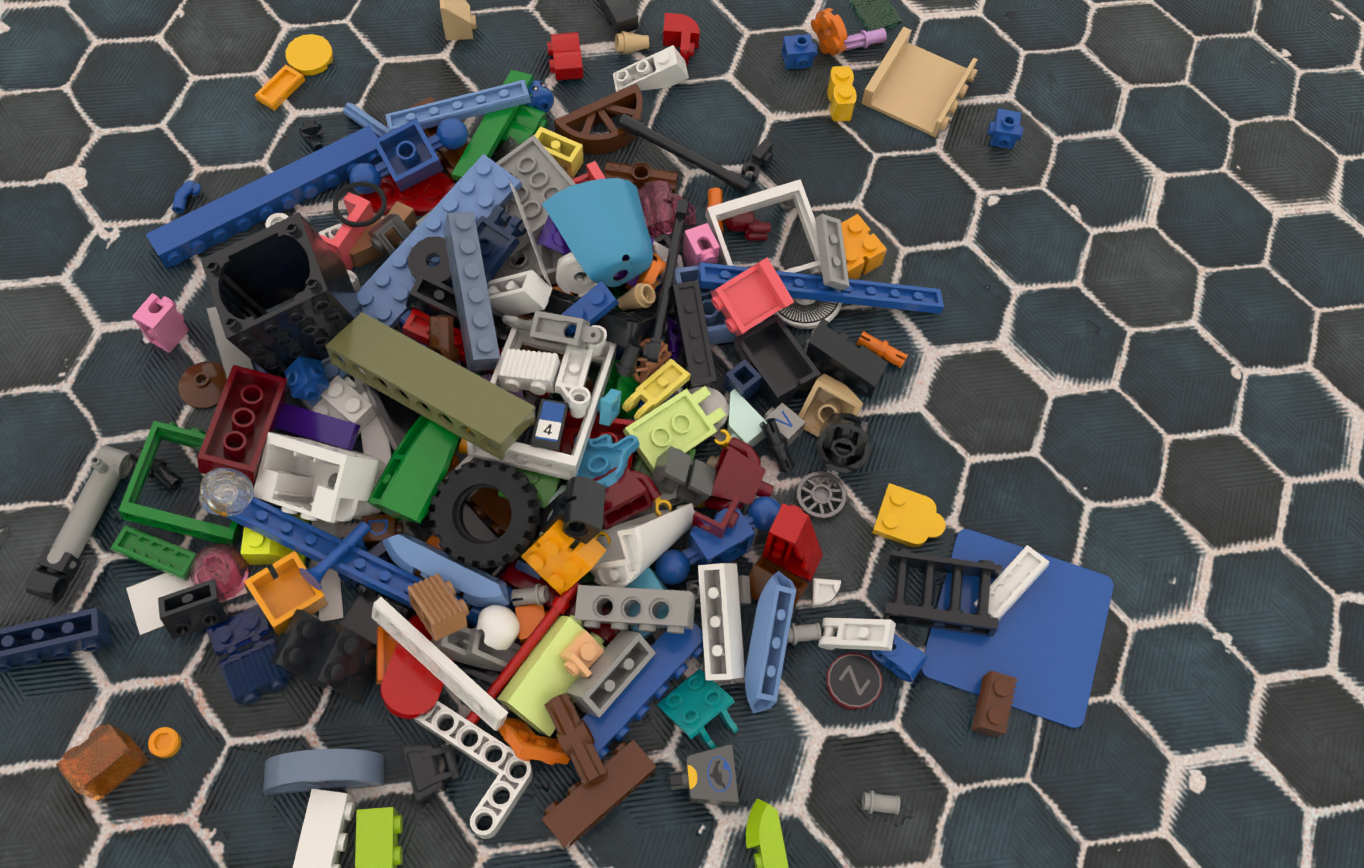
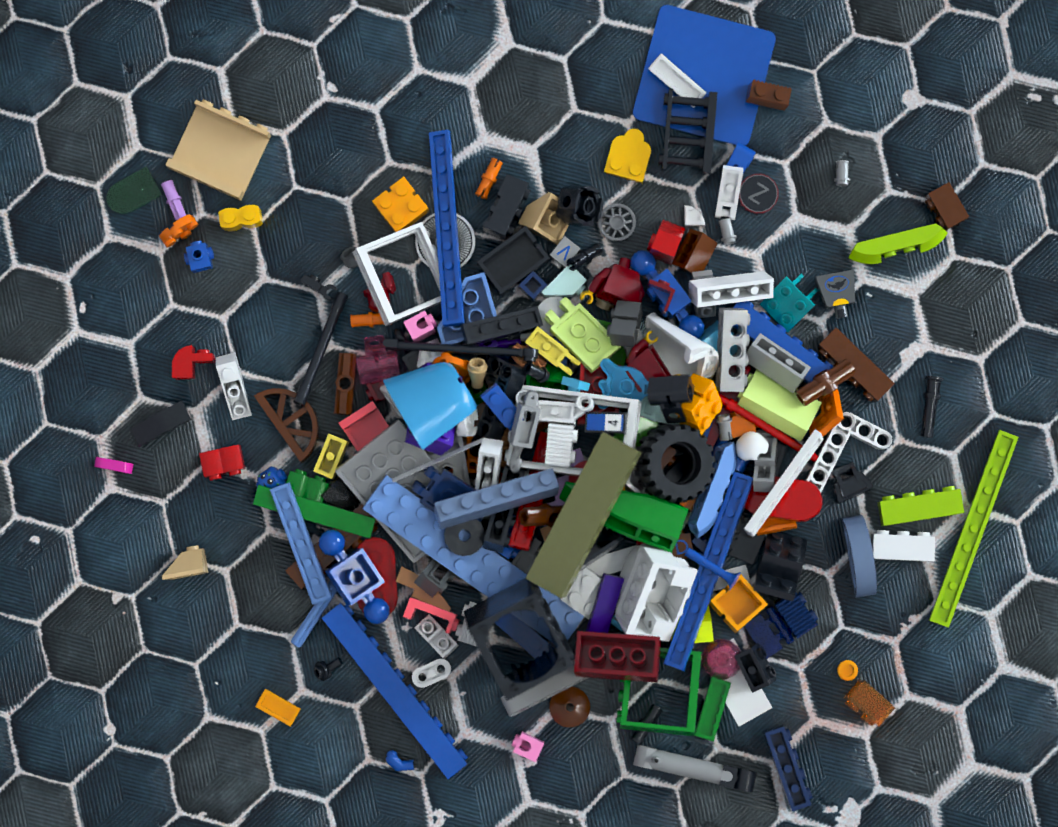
camera: 85 degrees left, 20 degrees up
(225, 492) = (676, 654): clear piece -> none
(306, 378) = (571, 619): blue brick -> none
(309, 54) = (240, 688): yellow tile -> none
(357, 184) = (415, 584): black tyre -> none
(438, 606) = (747, 487): medium nougat brick -> none
(581, 654) = (767, 385): light nougat bracket -> none
(630, 42) = (200, 407): tan cone -> none
(751, 297) = (471, 283): coral panel -> none
(769, 642) = (739, 254): medium blue brick -> none
(832, 252) = (418, 220): light grey plate -> none
(1005, 129) = (259, 73): blue brick -> none

